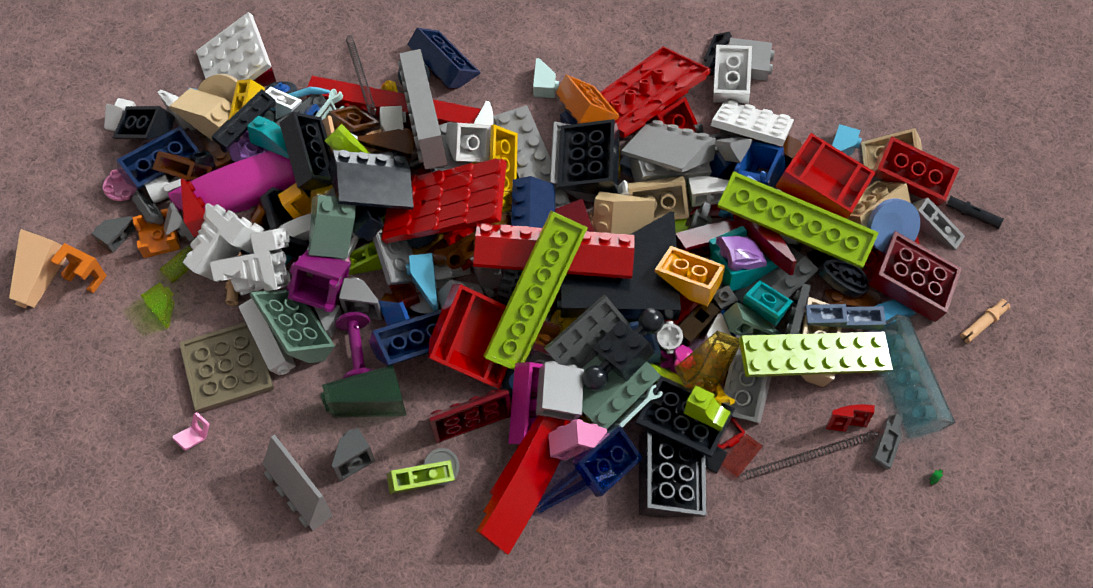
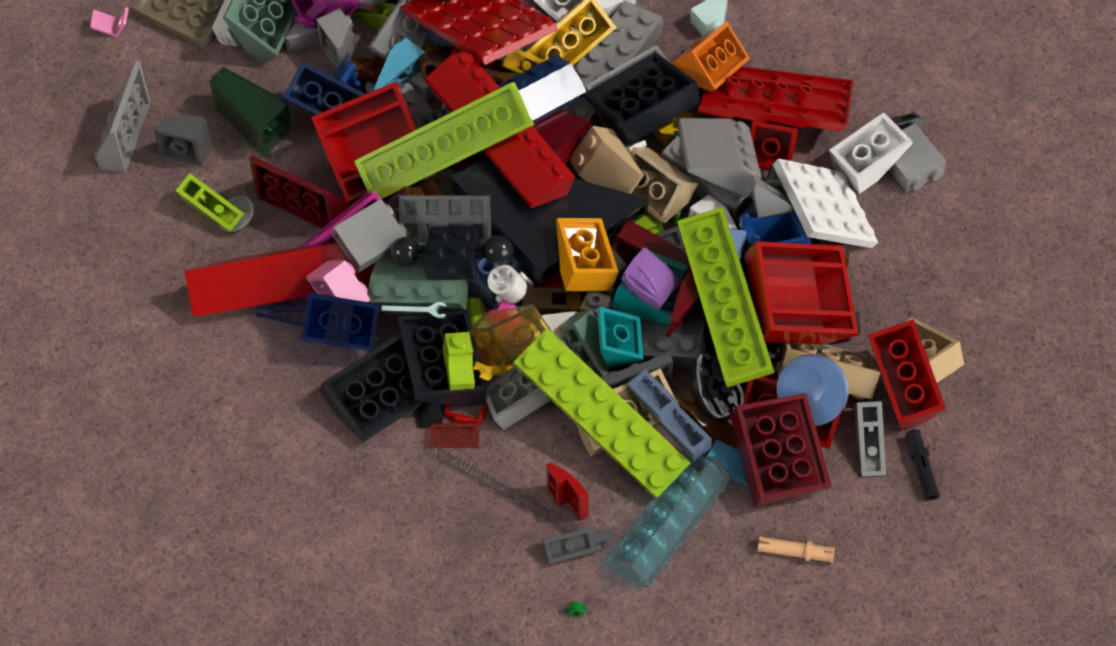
camera: 50 degrees right, 5 degrees down
(353, 323) = (309, 49): magenta hose -> none
(847, 139) = (888, 300): medium azure slope -> none

